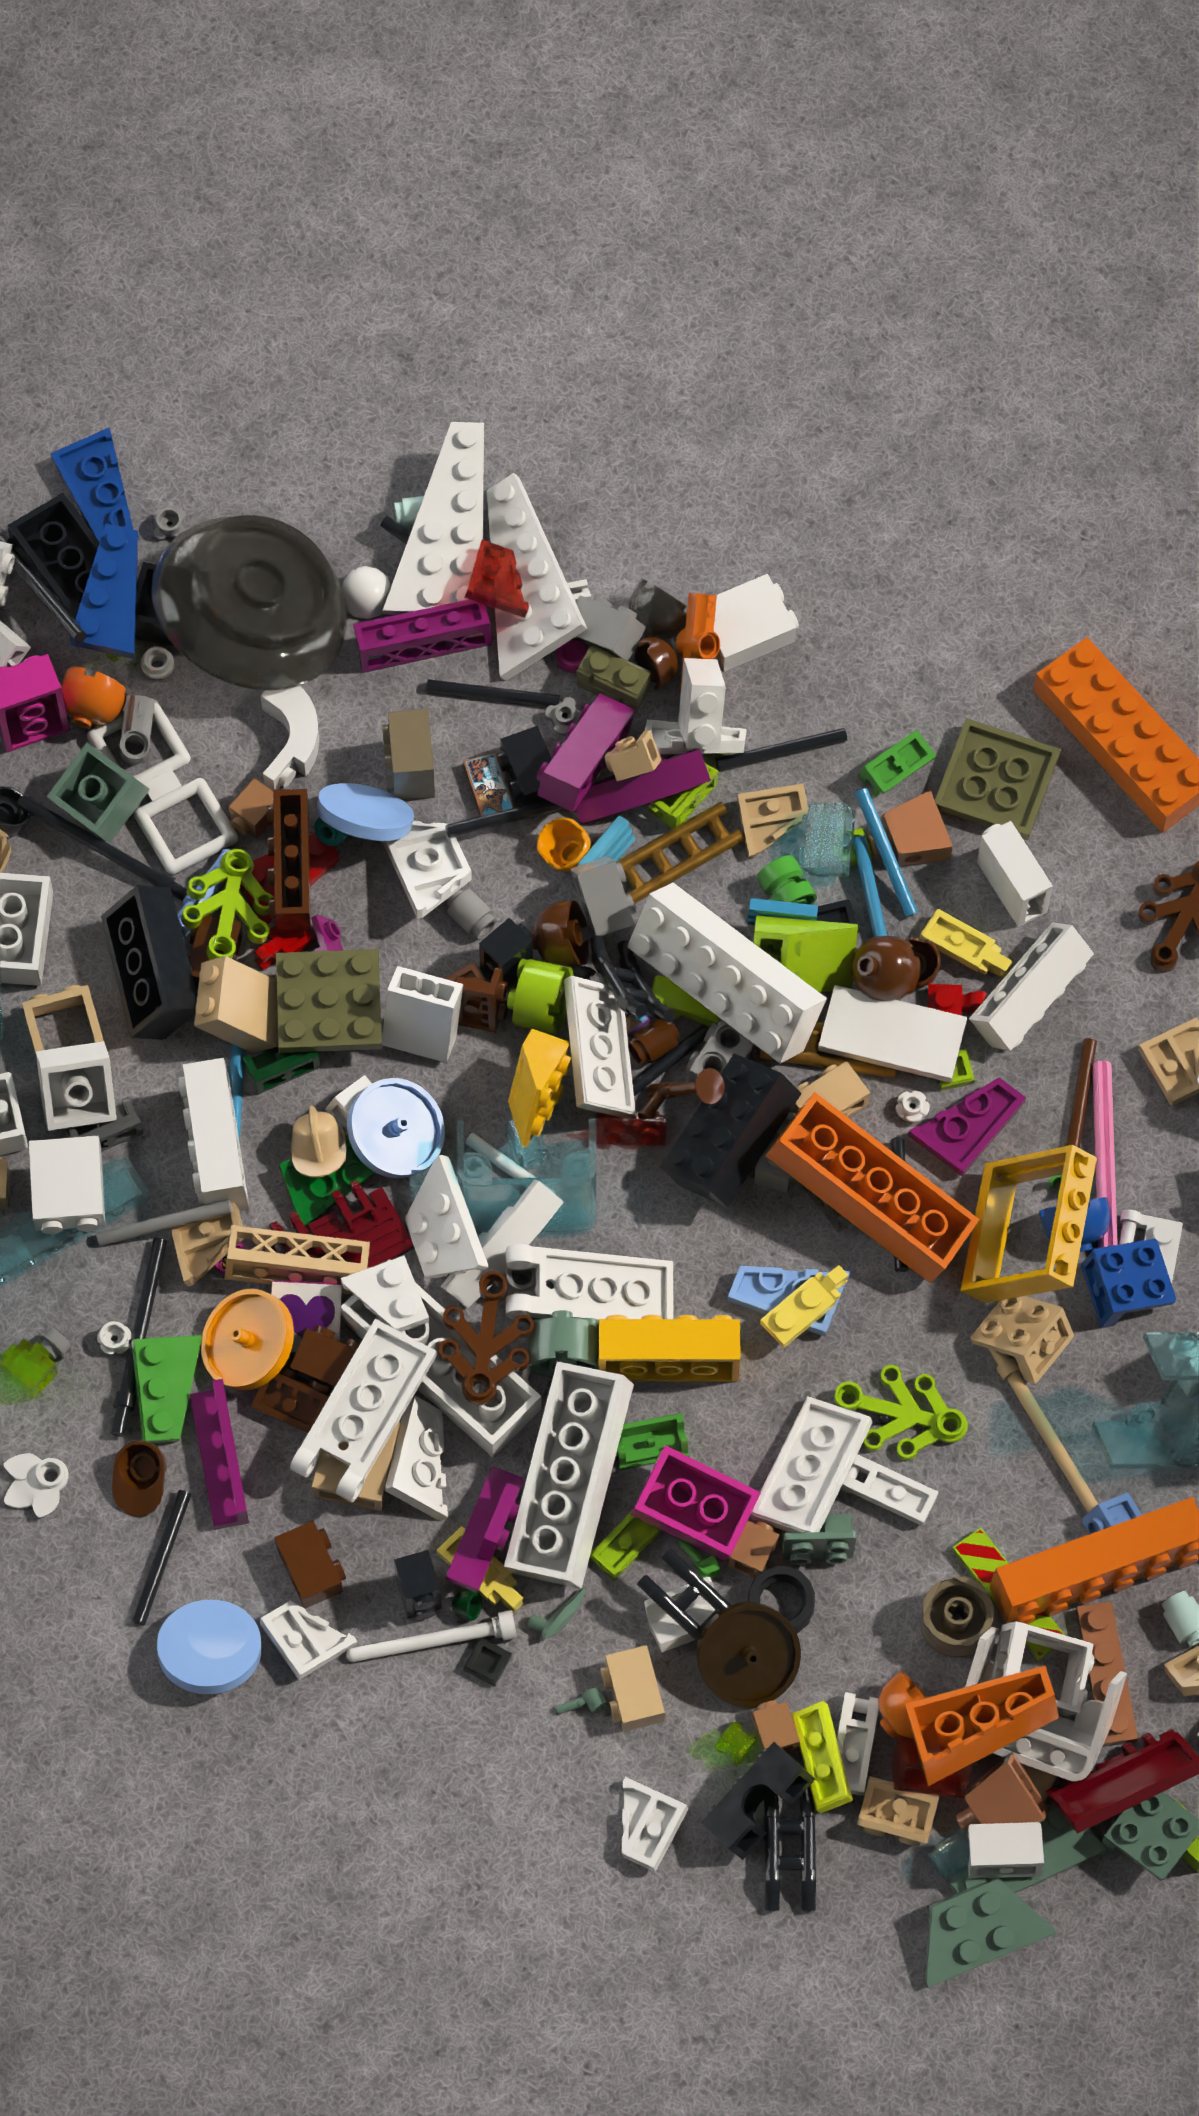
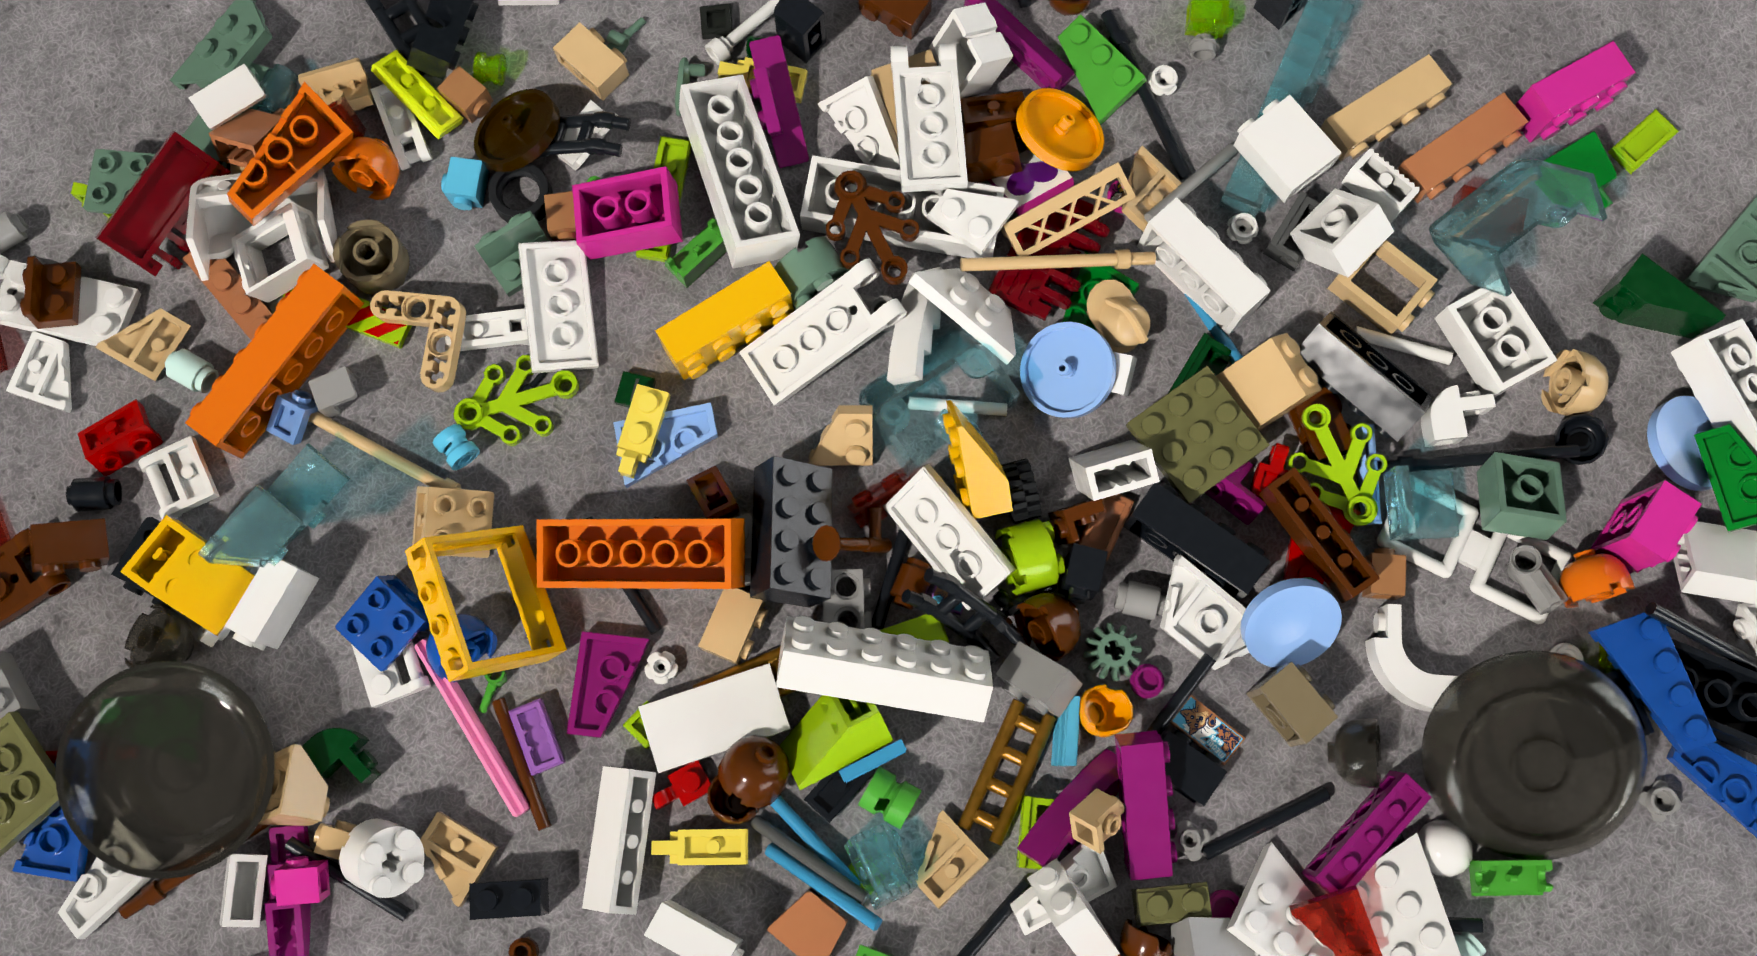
camera: 150 degrees right, 10 degrees up
(85, 978) = (1405, 346): none -> white bar
(96, 899) = (1445, 419): none -> white brick
(147, 1153) = (1242, 220): none -> white plate
(184, 837) = (1420, 504): none -> clear light blue bracket
(266, 1462) = (979, 49): none -> white piece
(281, 1192) = (1119, 259): none -> tan bar
(335, 545) = (1509, 877): none -> bright green hinge
(383, 692) = (1357, 752): none -> clear smoke cylinder
(391, 912) = (1185, 530): none -> black brick
(507, 1051) = (1022, 491): none -> black tyre
(510, 851) = (1146, 681): none -> magenta plate
(523, 899) = (1105, 660): none -> sand green gear
(627, 1187) = (846, 439): none -> tan wing
(777, 1212) = (713, 494): none -> reddish brown slope
(788, 1359) = (628, 385): none -> dark green tile
(828, 1641) = (465, 183): none -> medium azure brick
(883, 878) = (809, 859): none -> dark grey bar
(935, 1522) = (434, 320): none -> tan beam
(980, 1398) = (456, 447): none -> medium azure wheel
(1053, 1113) = (536, 737): none -> medium lavender plate
(1061, 1514) = (333, 390): none -> light grey panel
(1150, 997) = (509, 898): none -> black brick

